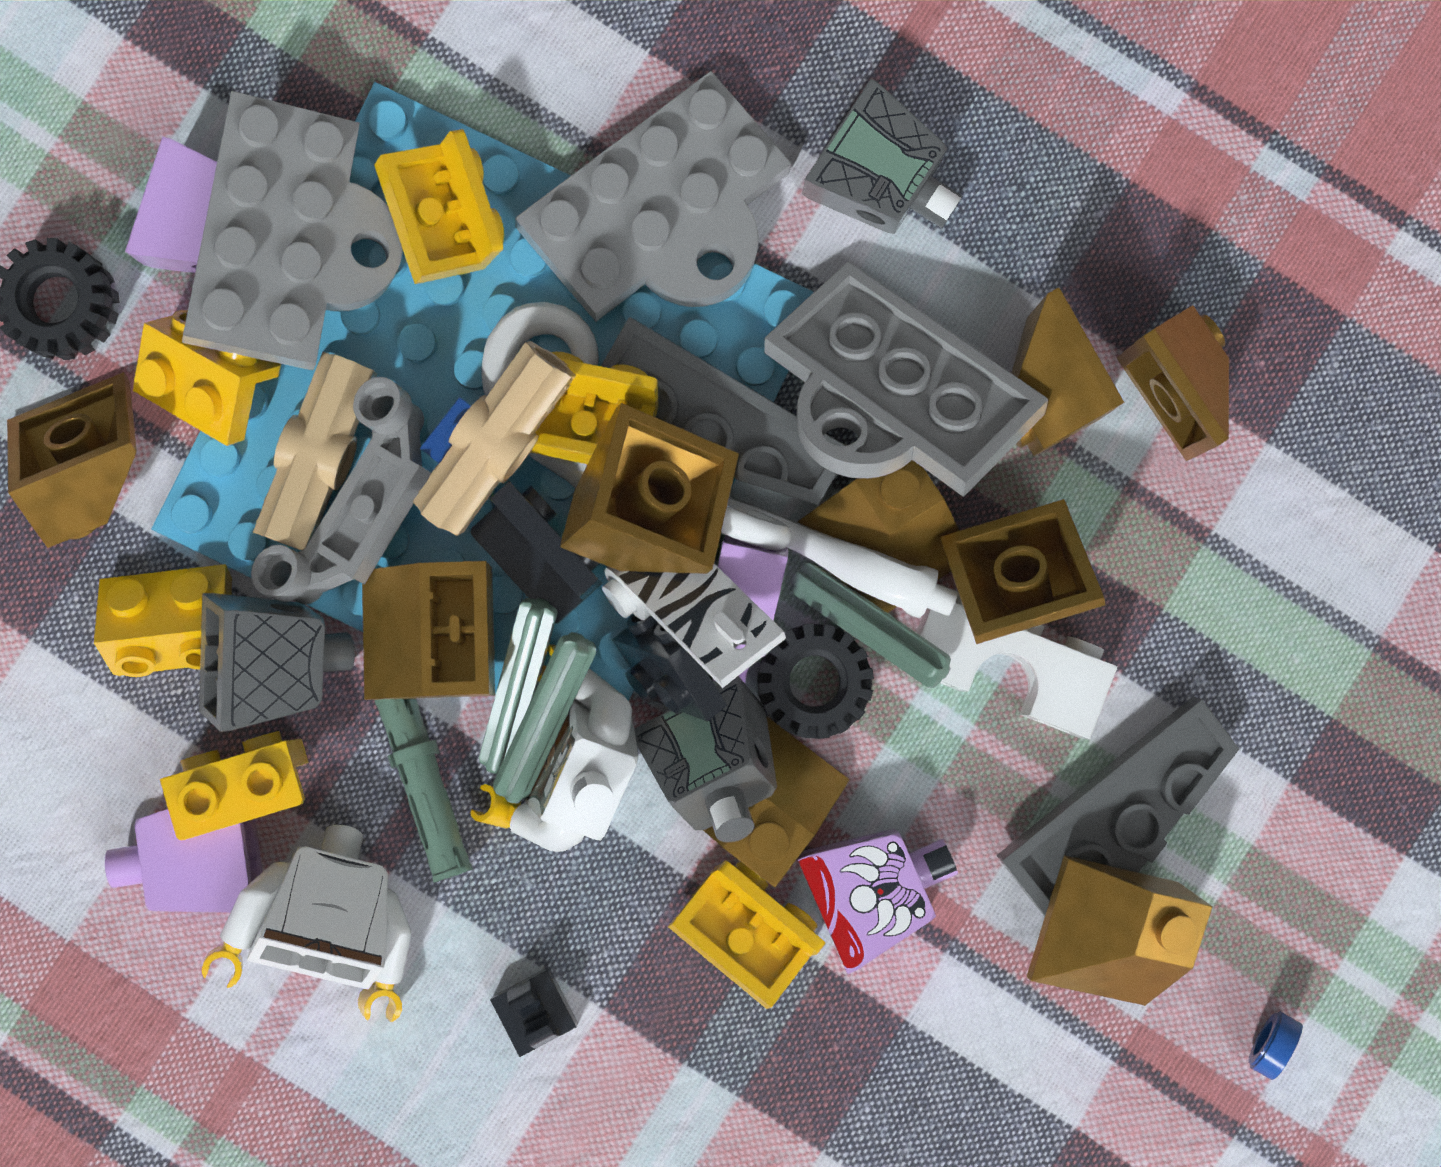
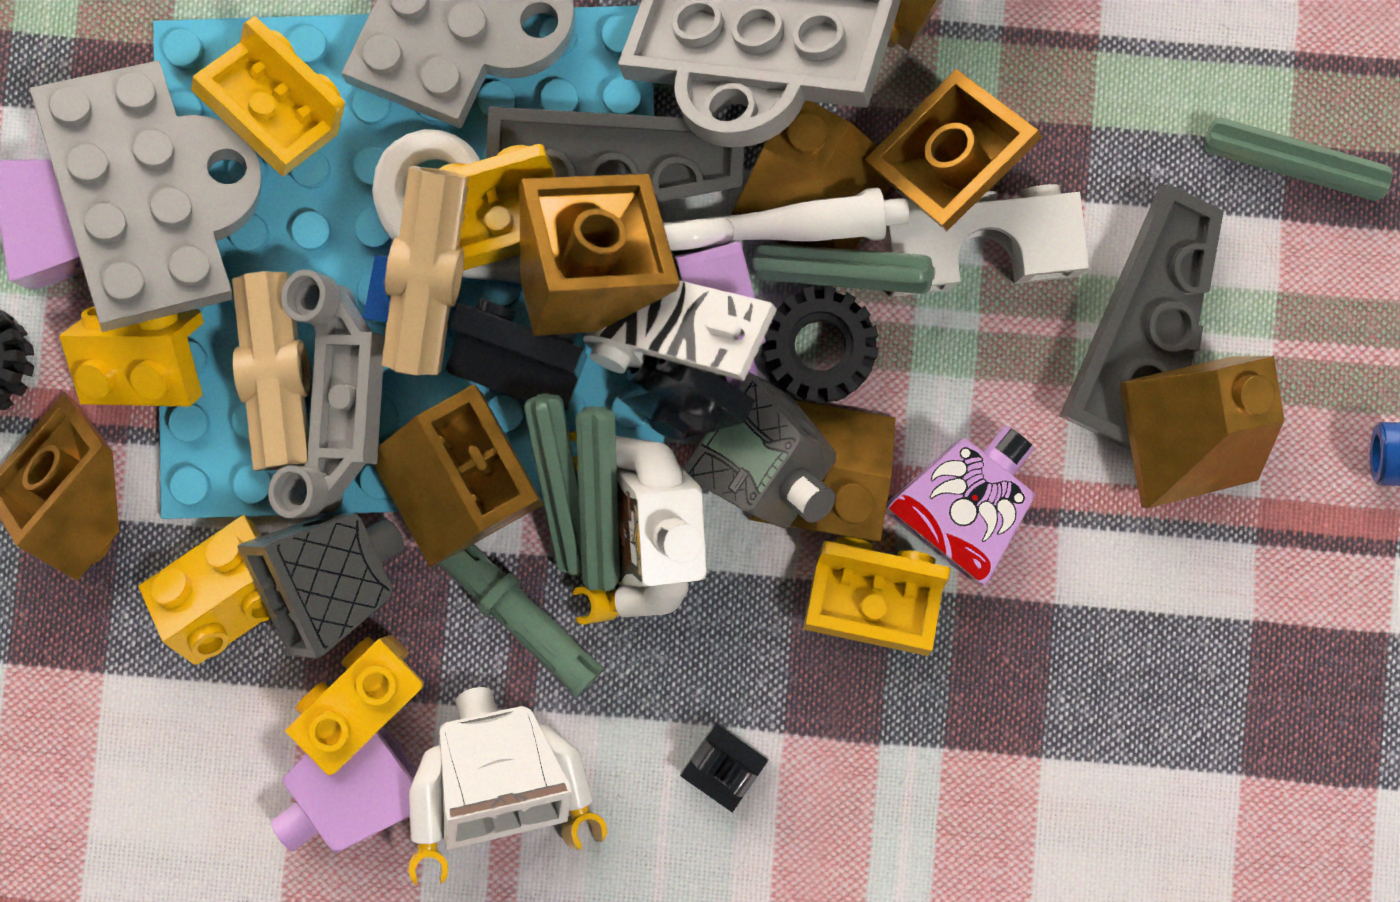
camera: 20 degrees left, 0 degrees up
(1332, 736) = (1298, 159): none -> sand green axle

